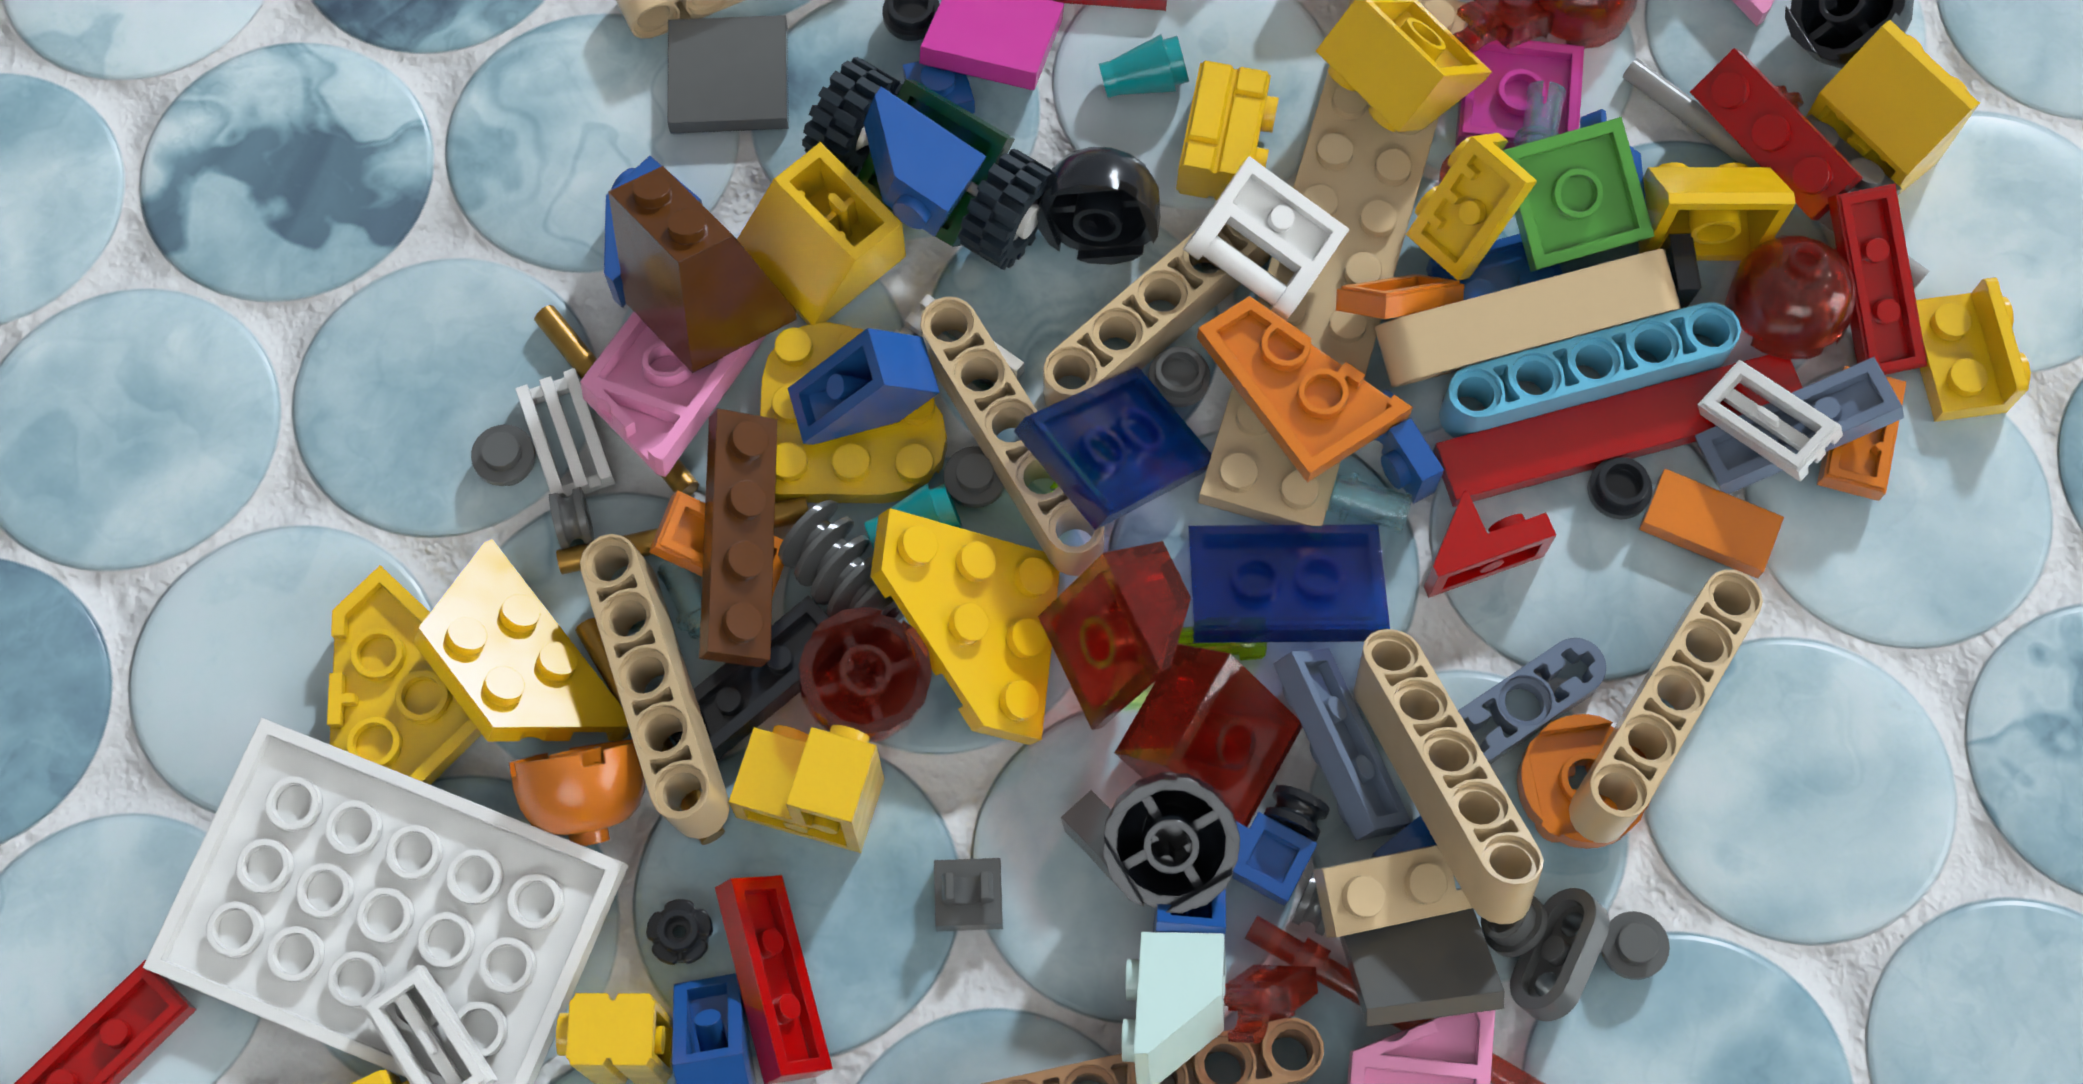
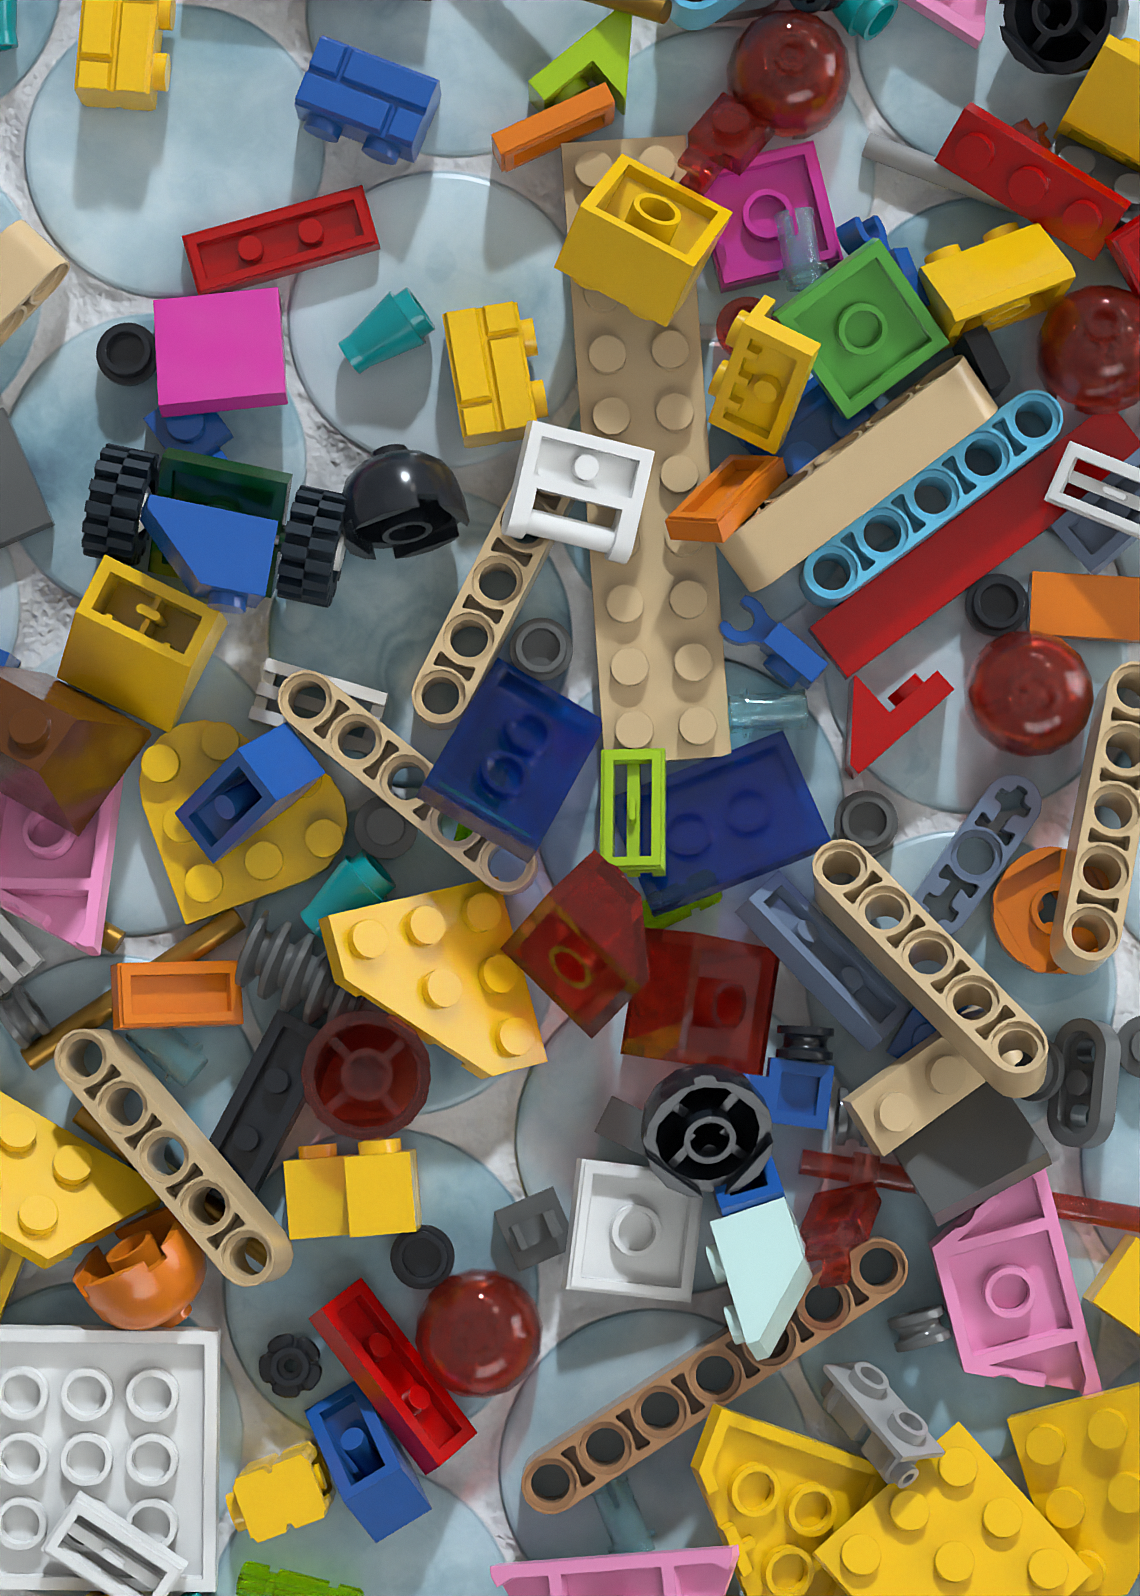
camera: 20 degrees left, 15 degrees up
(738, 539) = (192, 983): reddish brown plate -> none
(848, 878) = (422, 1257): none -> black plate
(872, 973) = (478, 1333): none -> clear red cylinder
(1061, 930) = (630, 1233): none -> white tile
(1196, 578) = (633, 863): none -> lime tile
(1297, 391) = (663, 633): orange wing -> none
(1433, 630) = (867, 820): none -> dark grey plate
(1625, 573) = (1029, 693): none -> clear red cylinder

